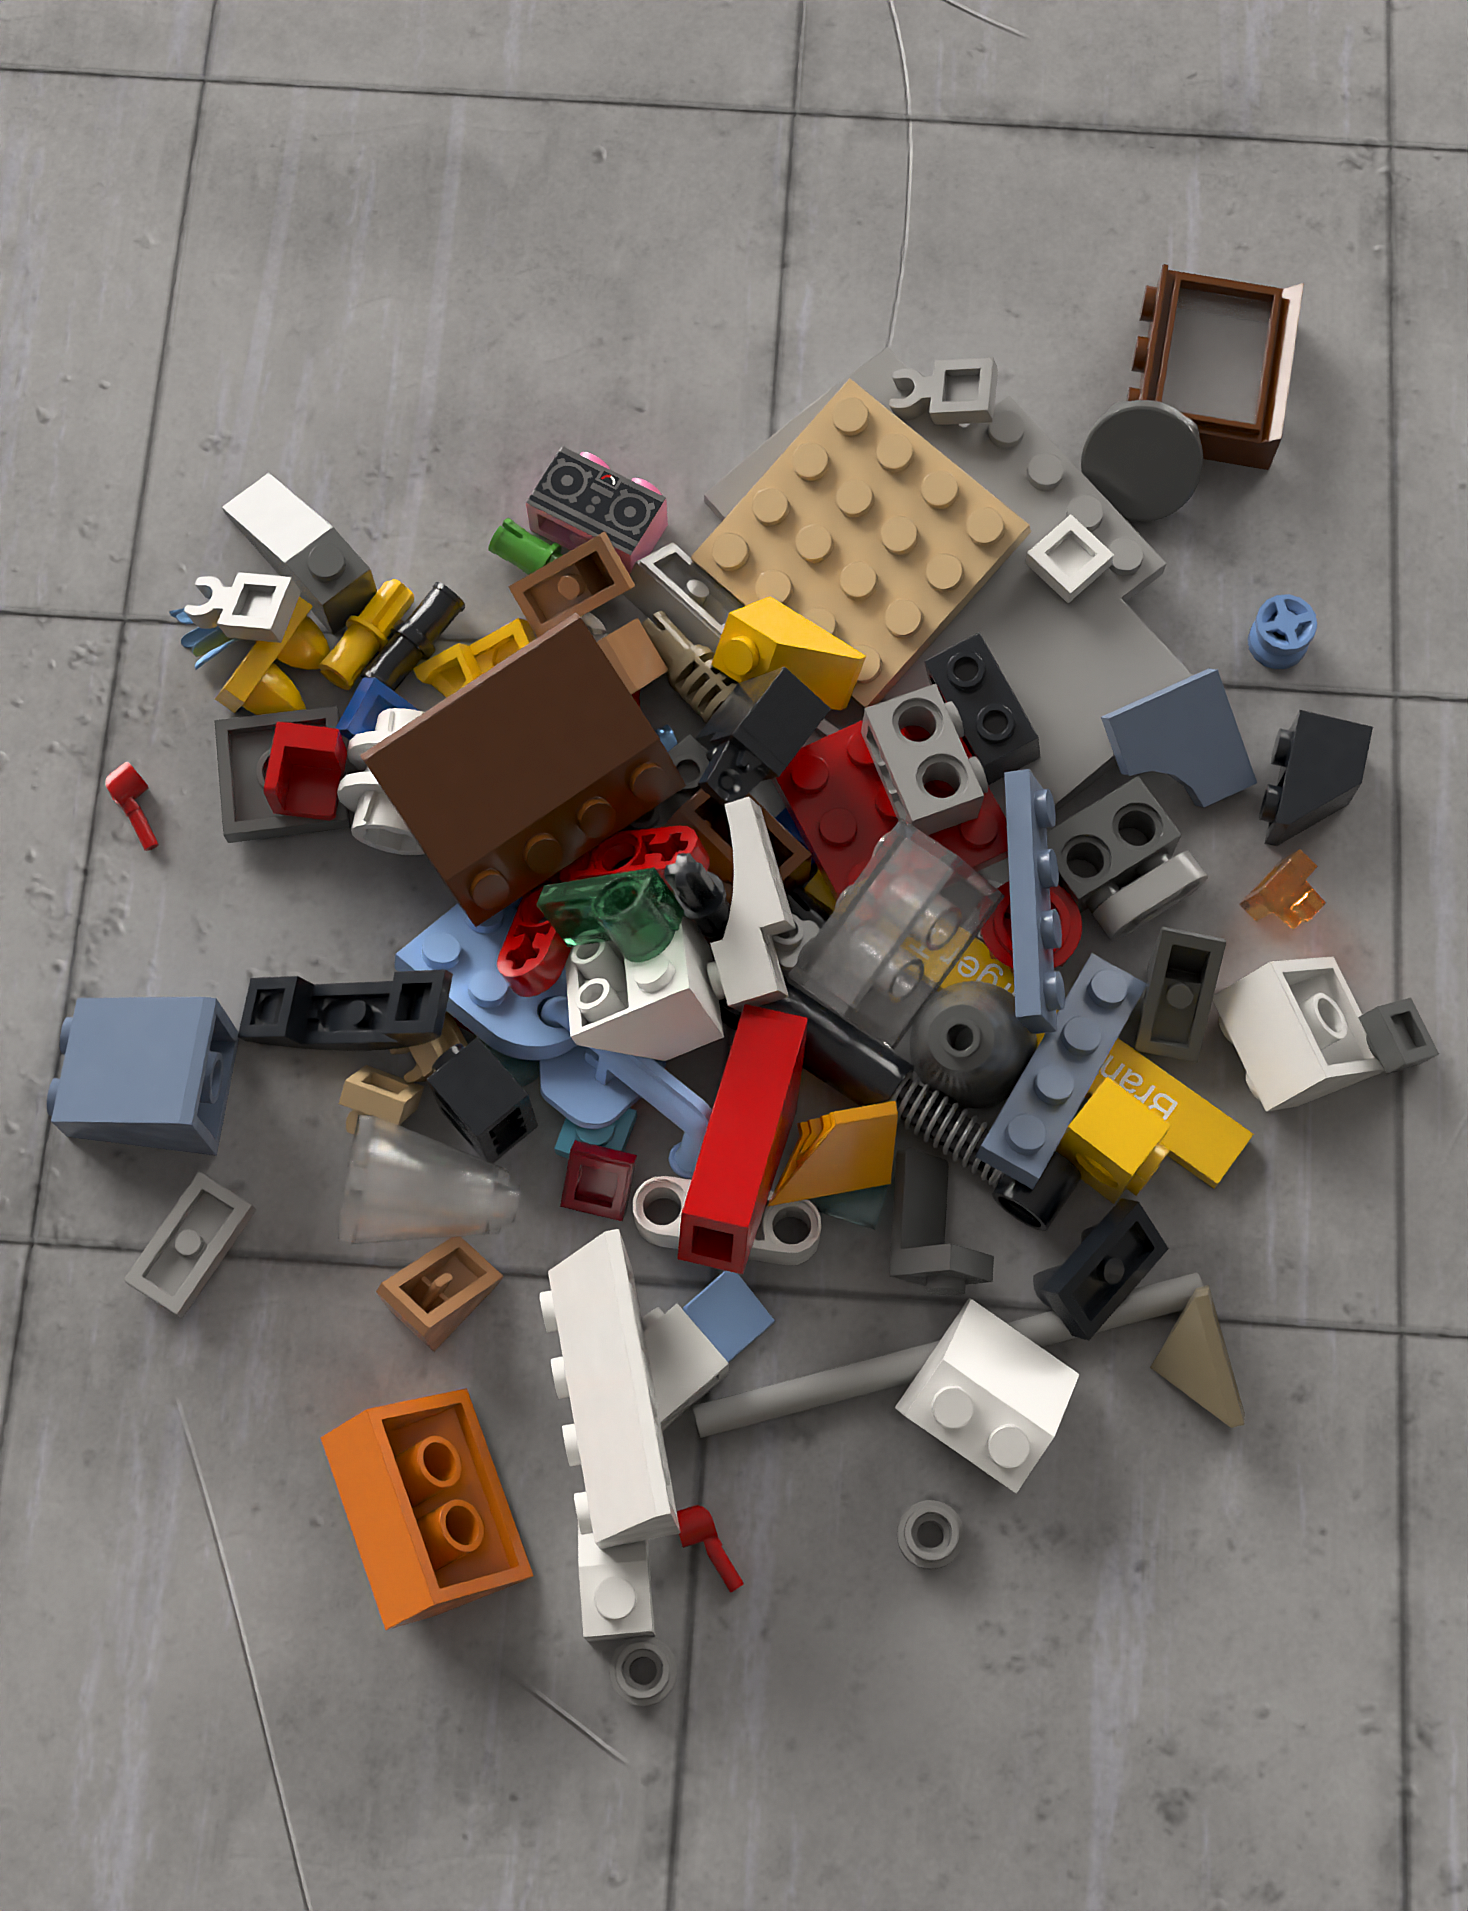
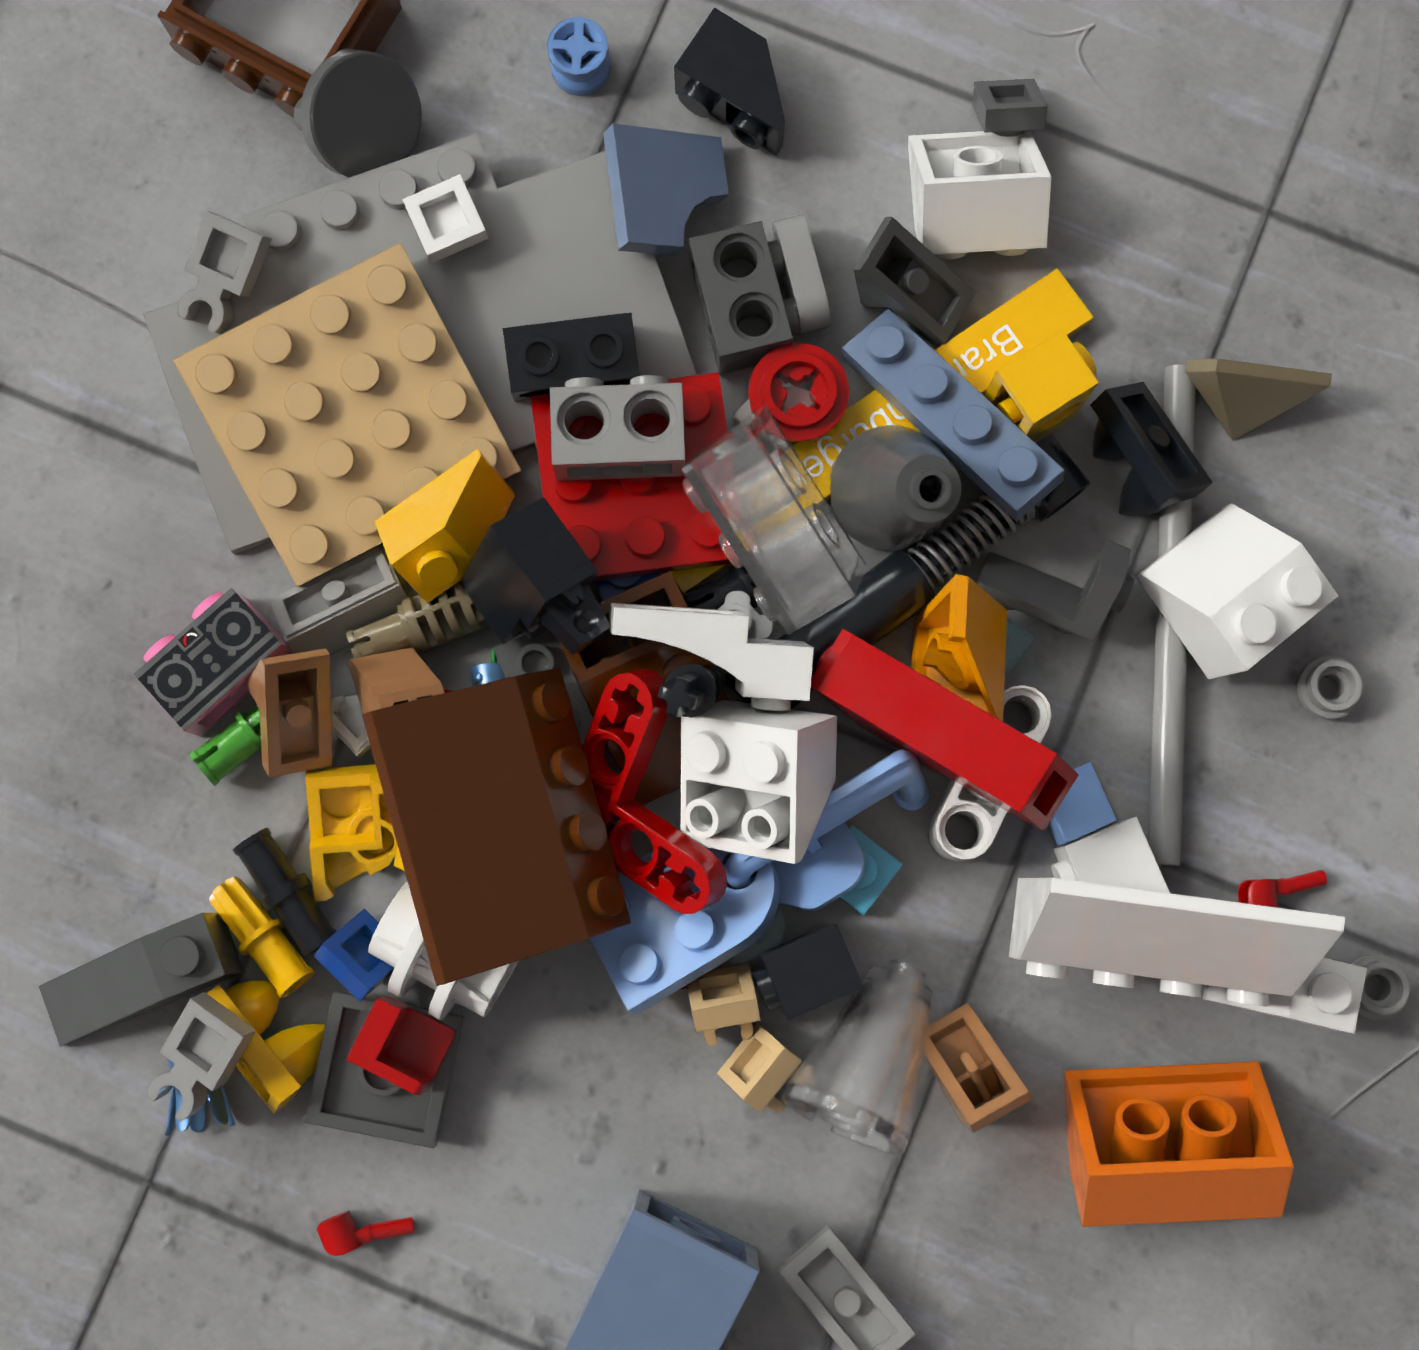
camera: 70 degrees left, 10 degrees up
(347, 1015) = (669, 1076): black slope -> none
(598, 1180) = (910, 882): dark red tile -> none
(624, 908) = (681, 779): clear green plate -> none
(1033, 923) = (763, 368): sand blue plate -> none
(1286, 892) = (837, 151): clear orange tile -> none

